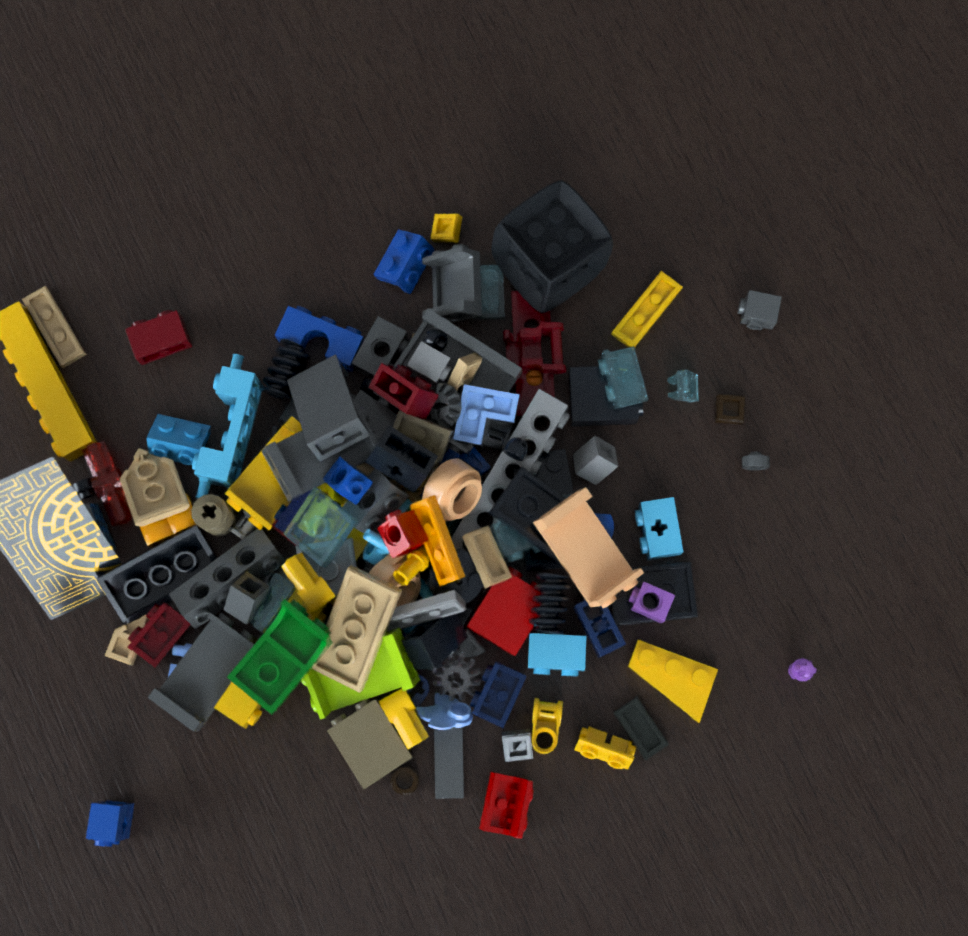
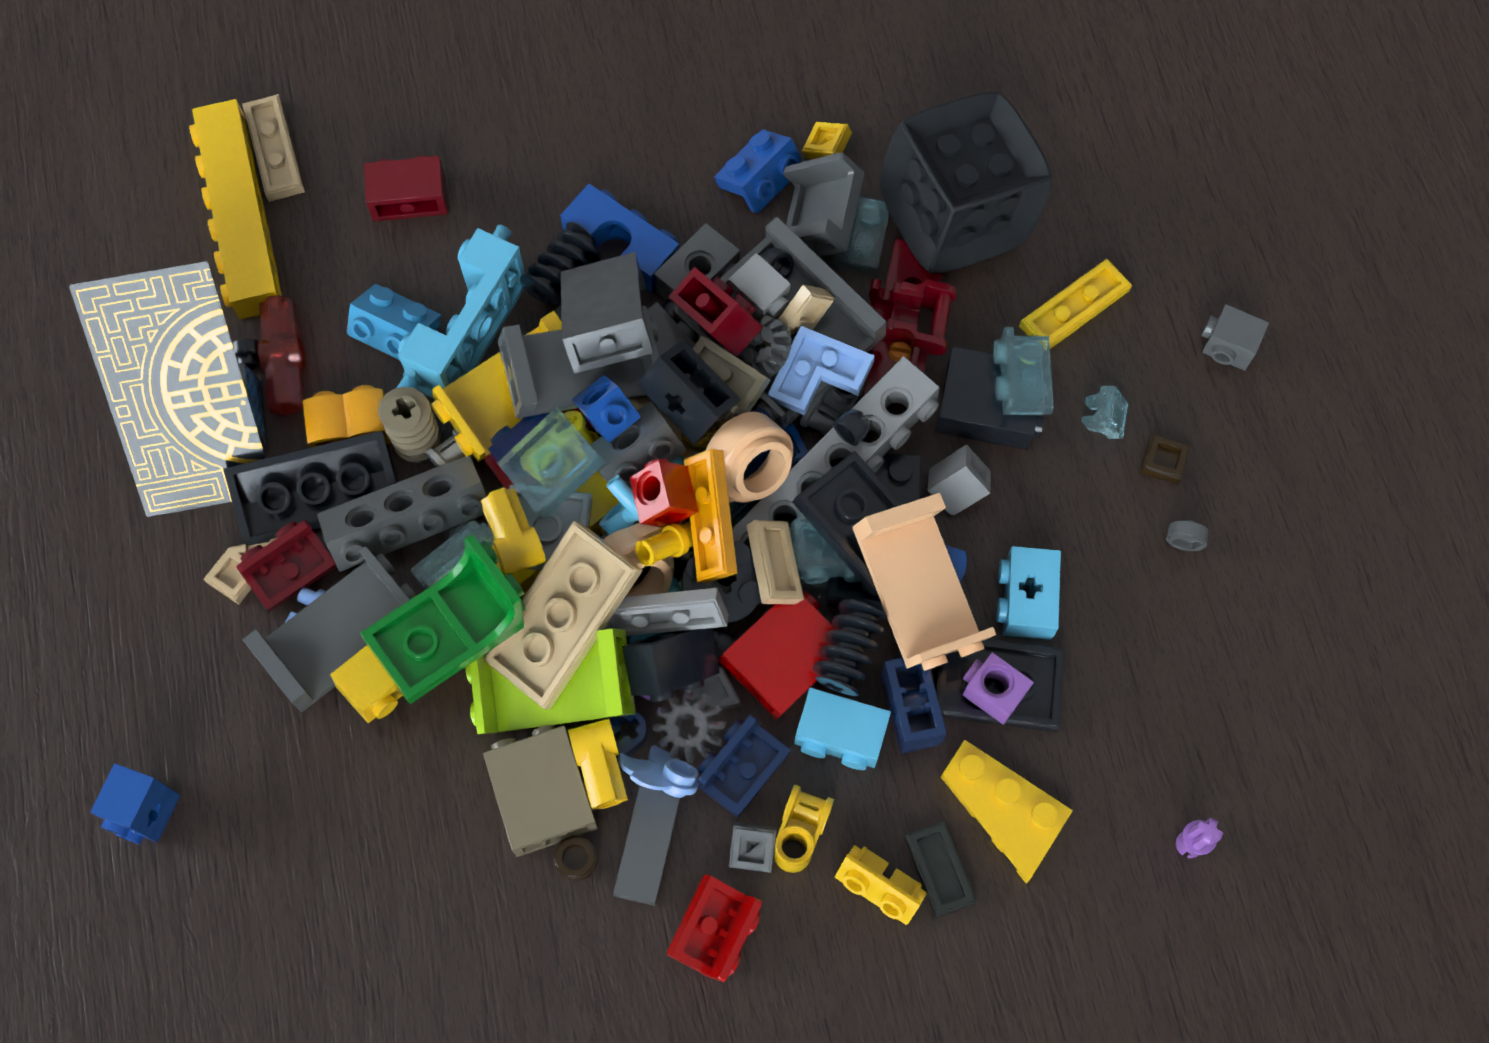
camera: 10 degrees right, 10 degrees down
(153, 488) = (338, 371): tan tile -> none
(246, 597) = (420, 535): dark grey brick -> none

